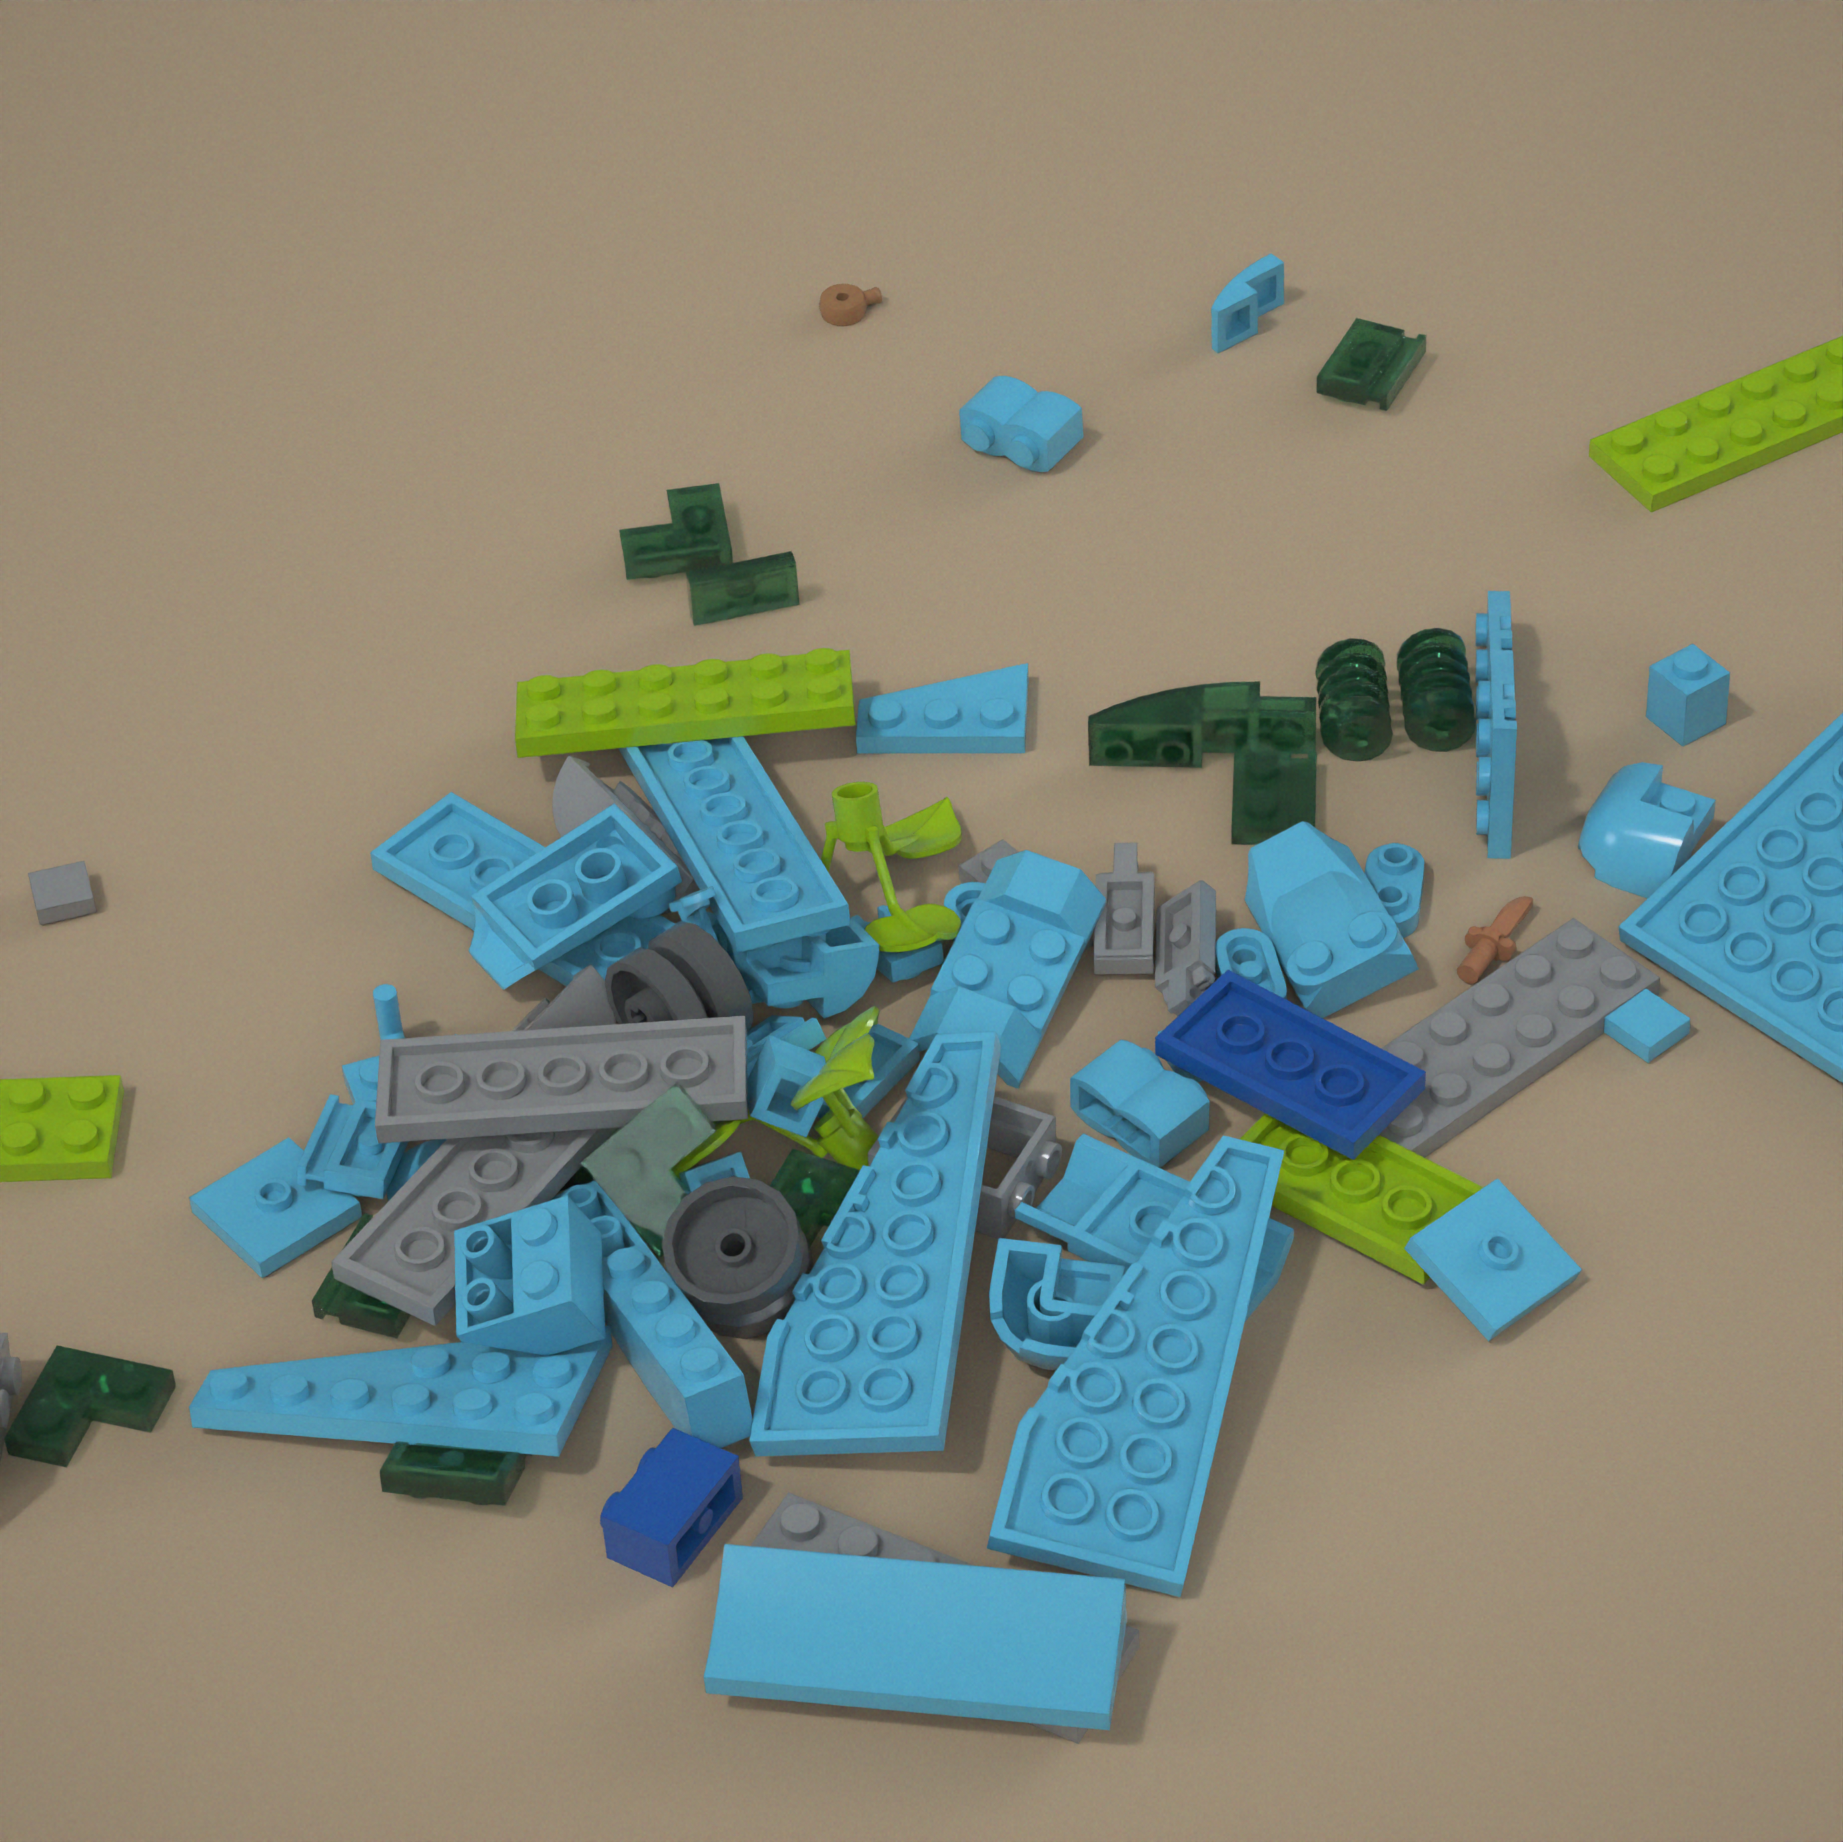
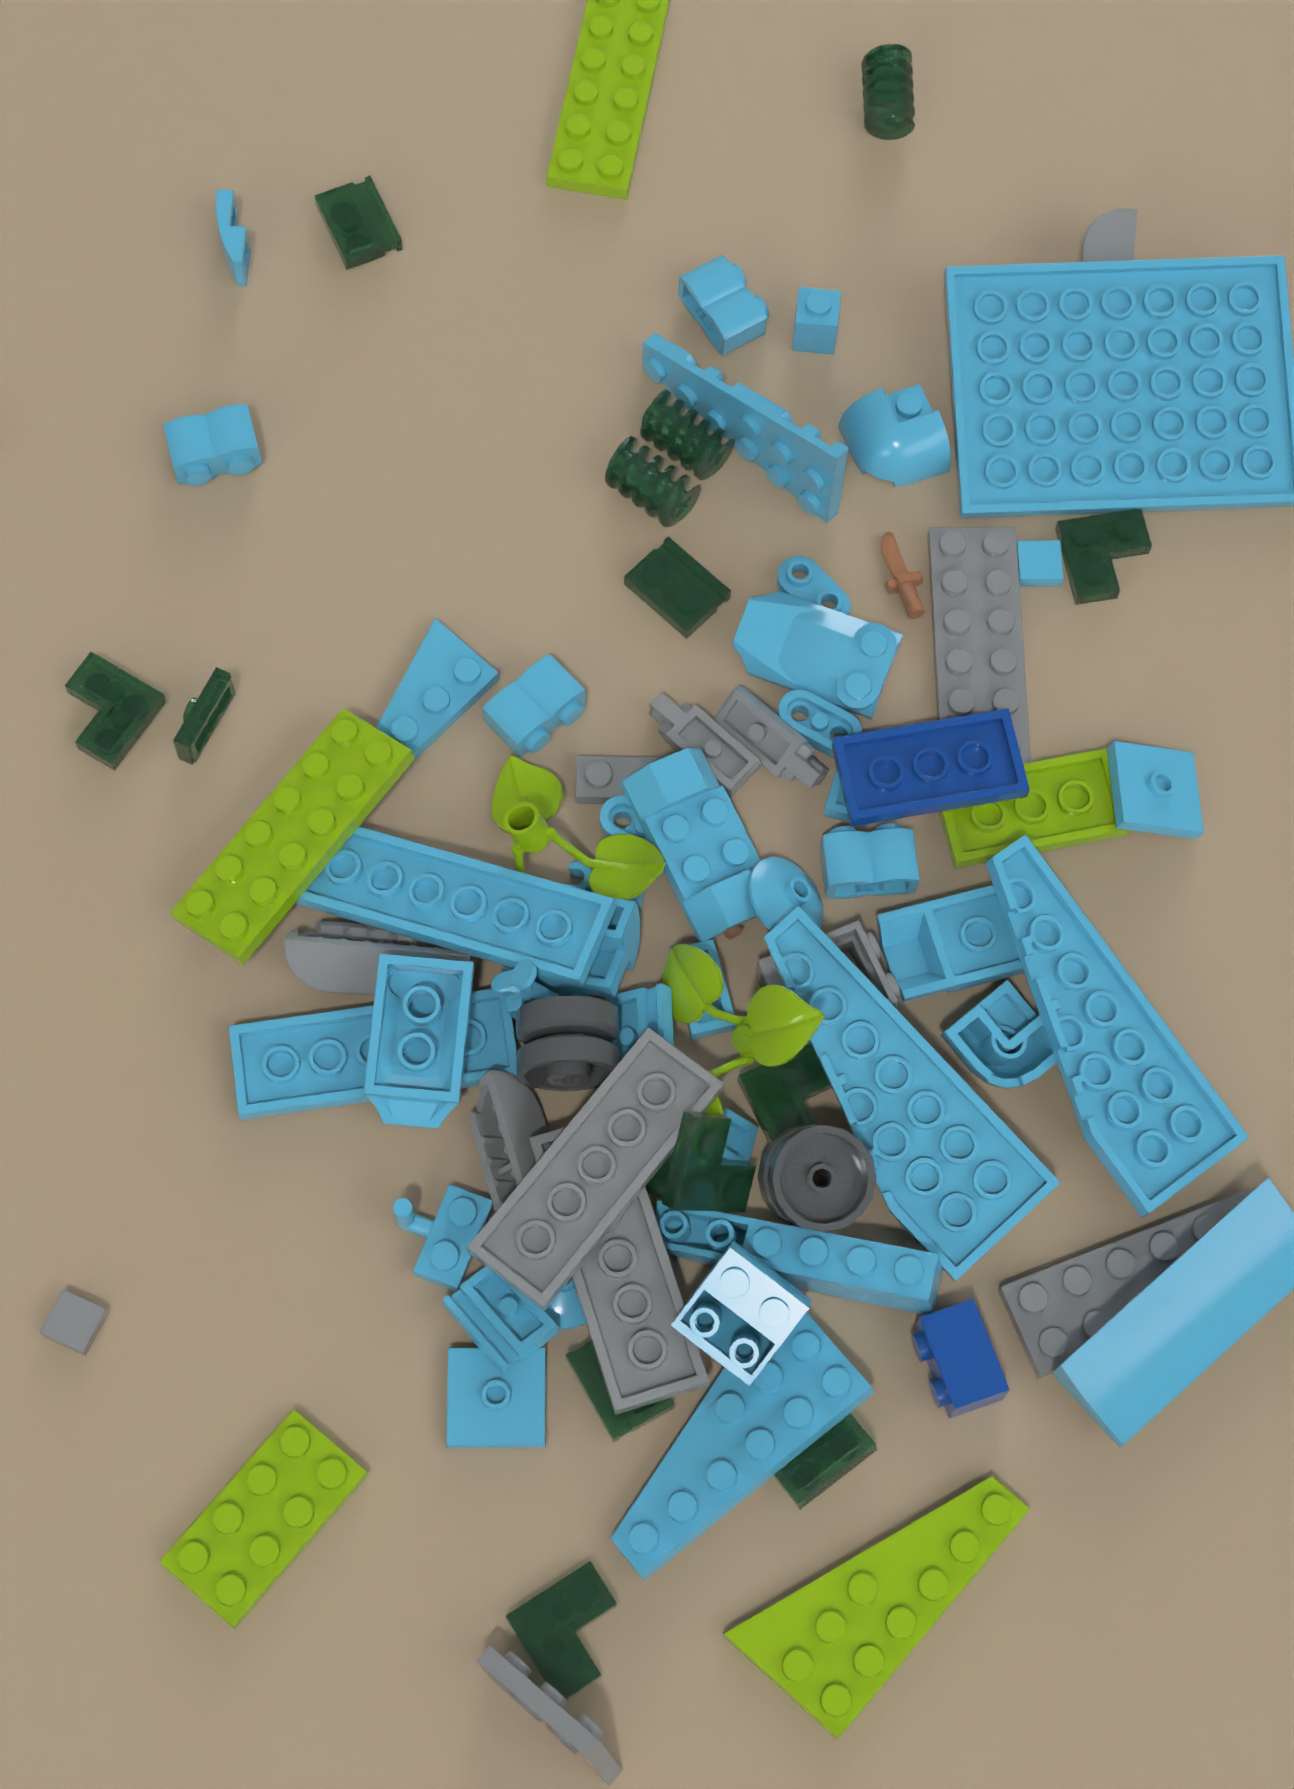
camera: 55 degrees left, 25 degrees up
(309, 1616) = (860, 1621): none -> lime wing
(776, 1080) = (713, 1042): medium azure brick -> none
(1018, 777) = (534, 706): none -> medium azure brick
(1018, 1079) = (778, 888): none -> medium azure dish
(1187, 721) = (582, 579): clear green slope -> none
(1617, 629) = (723, 305): none -> medium azure brick
(1722, 1049) = (1093, 543): none -> clear green plate

